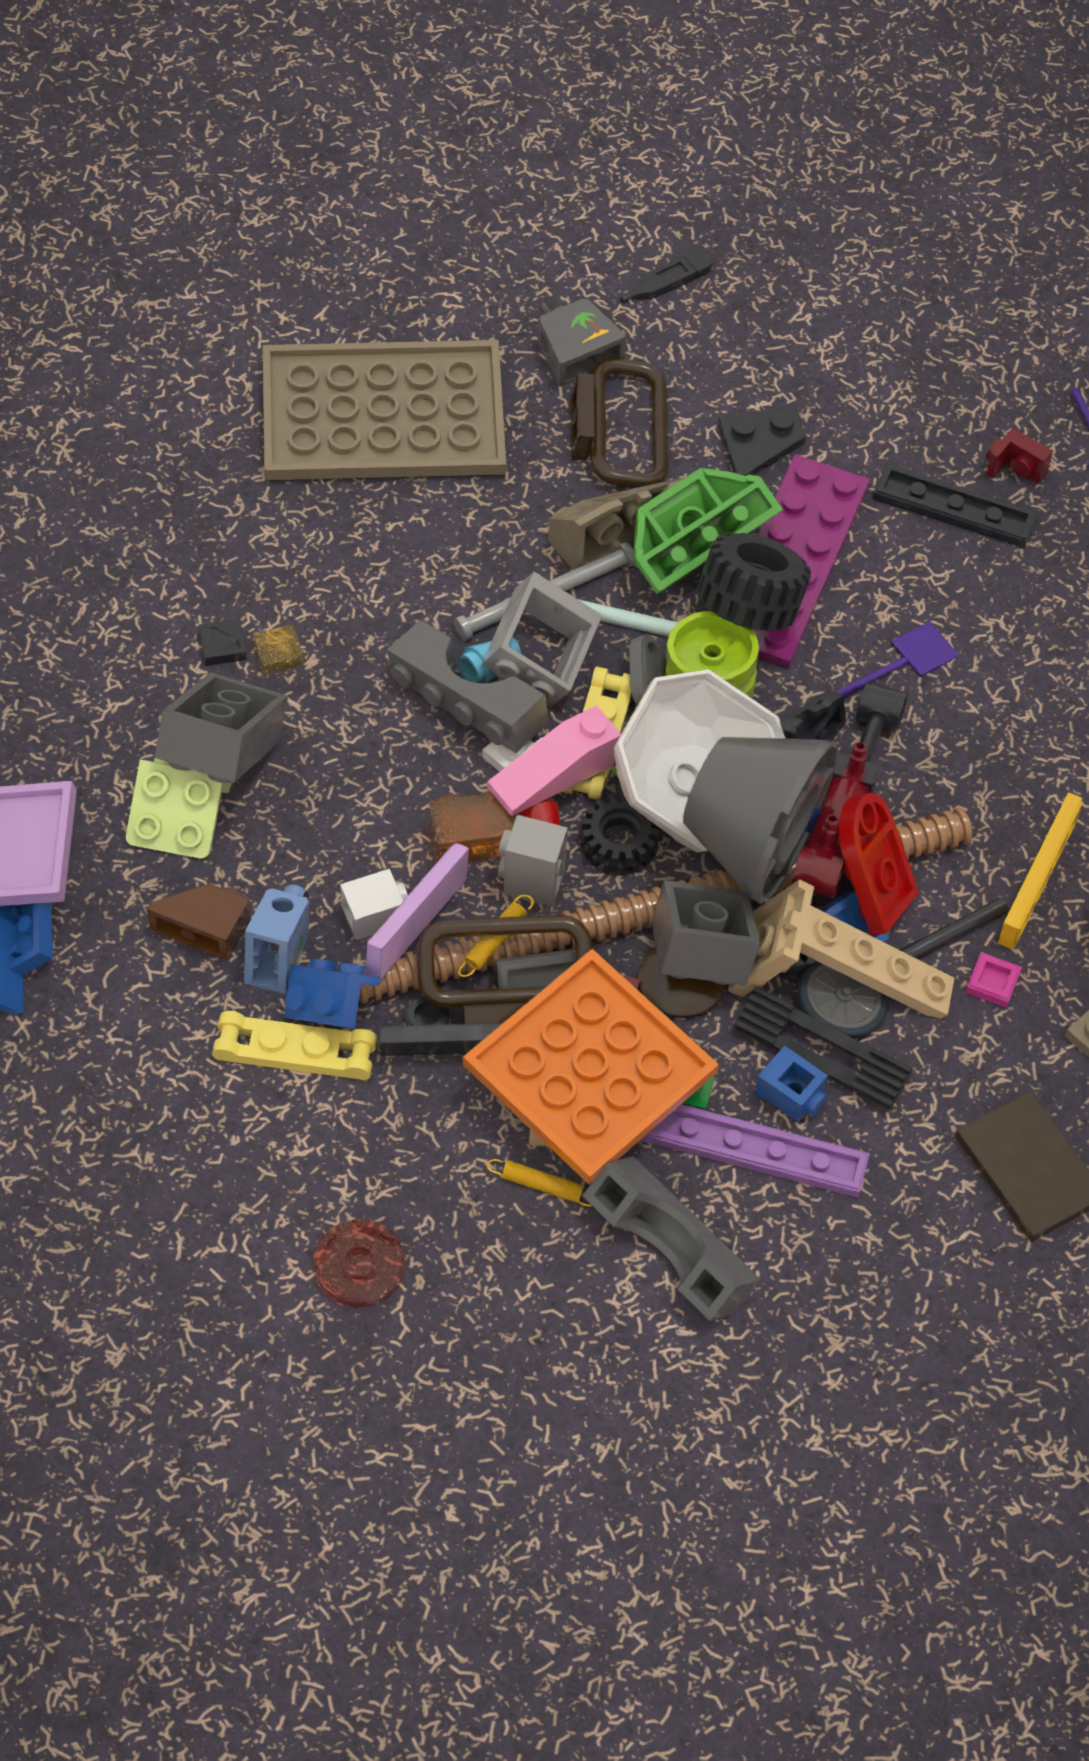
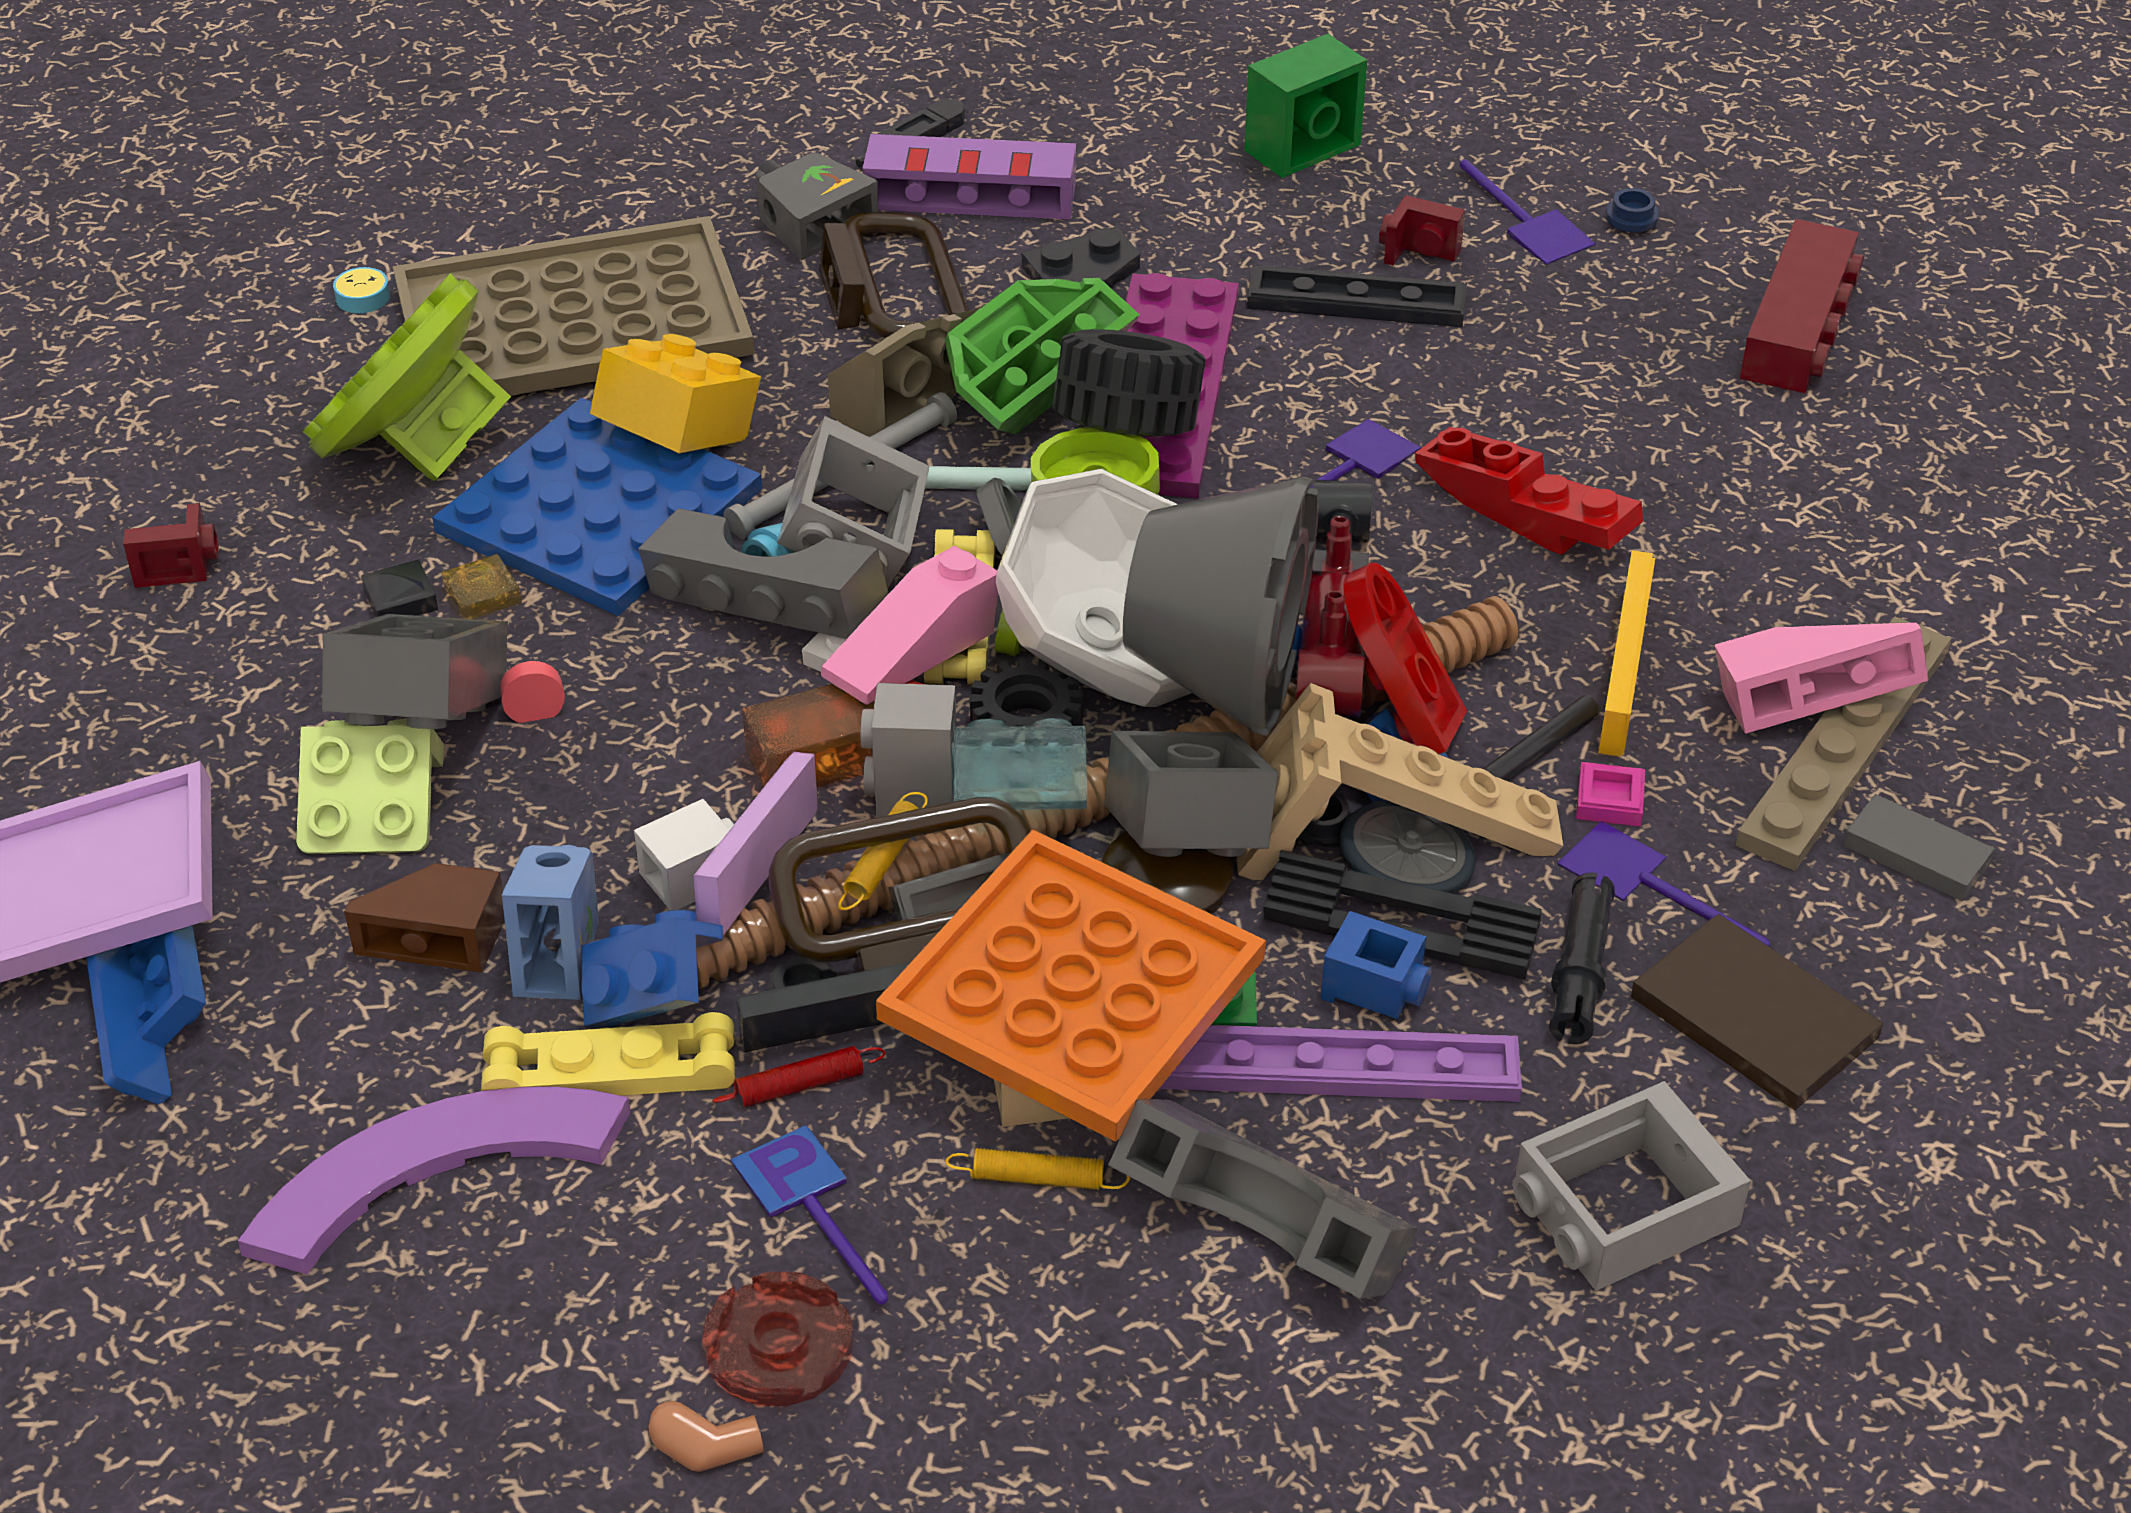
camera: 10 degrees left, 15 degrees down
(76, 581) = (171, 551): none -> dark red bracket
(171, 1082) = (421, 1143): none -> medium lavender tile
(238, 357) = (361, 290): none -> tile
(256, 476) = (416, 388): none -> lime bracket
(296, 749) = (531, 692): none -> coral tile
(298, 1321) = (699, 1443): none -> nougat arm
(367, 587) = (585, 500): none -> blue plate
(391, 1150) = (796, 1172): none -> piece
(410, 1082) = (799, 1076): none -> red piece
(438, 515) = (675, 393): none -> yellow brick
(598, 892) = (1022, 765): none -> clear light blue bracket
(700, 336) = (972, 176): none -> medium lavender brick
(923, 1119) = (1580, 974): none -> black pin
(945, 1261) = (1680, 1147): none -> light grey window
(964, 321) = (1305, 105): none -> green brick
(982, 1032) = (1629, 865): none -> dark purple piece
(1011, 716) = (1517, 493): none -> red slope

